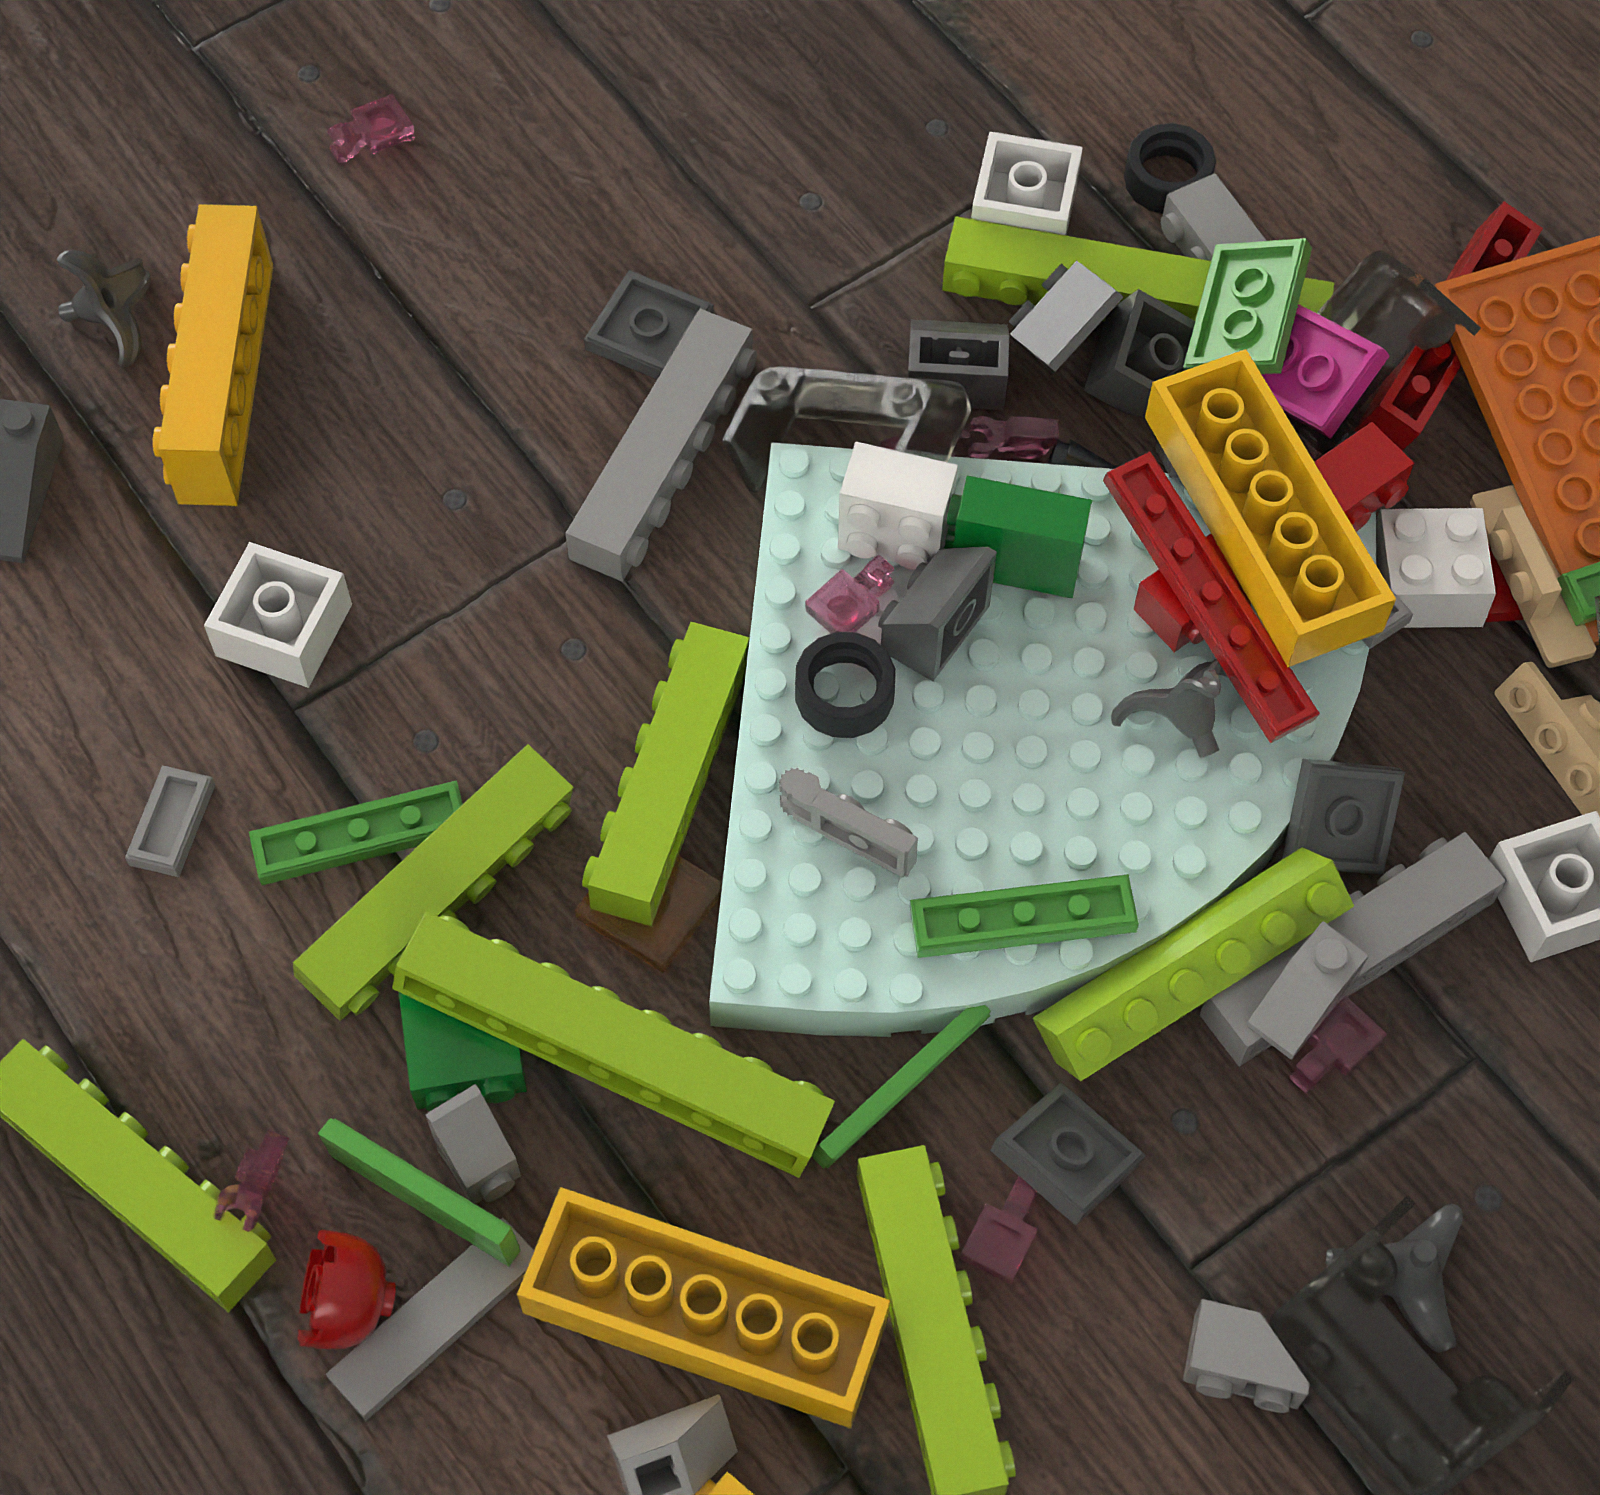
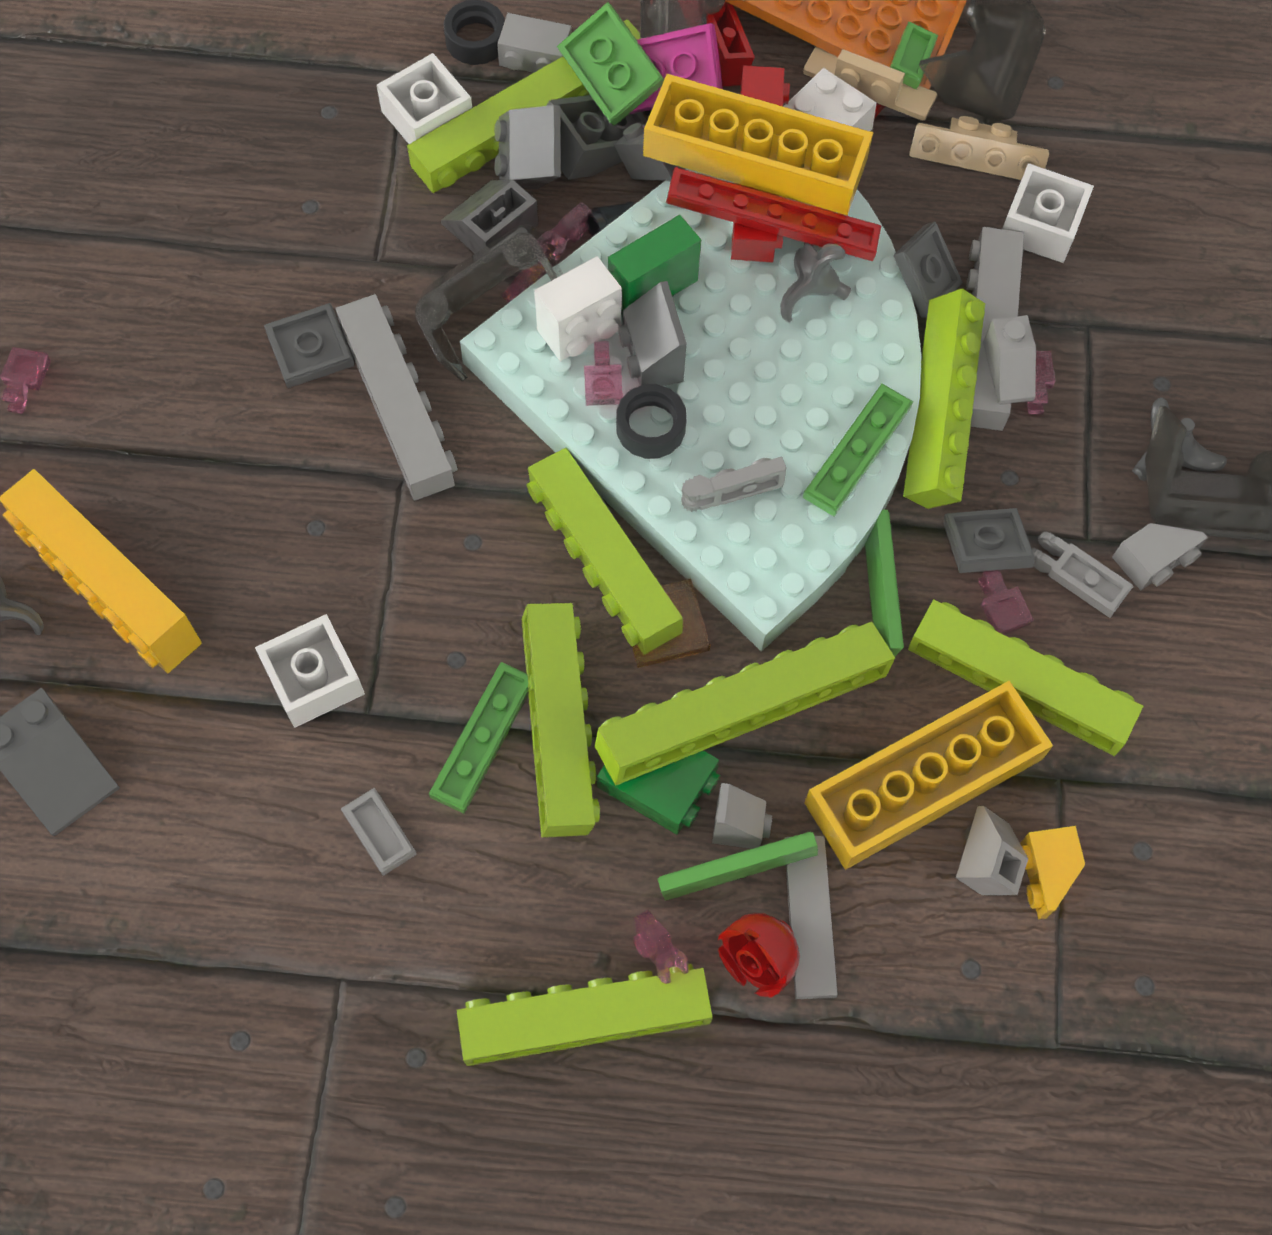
camera: 50 degrees left, 5 degrees up
(1129, 1295) = (1081, 574): none -> light grey hinge

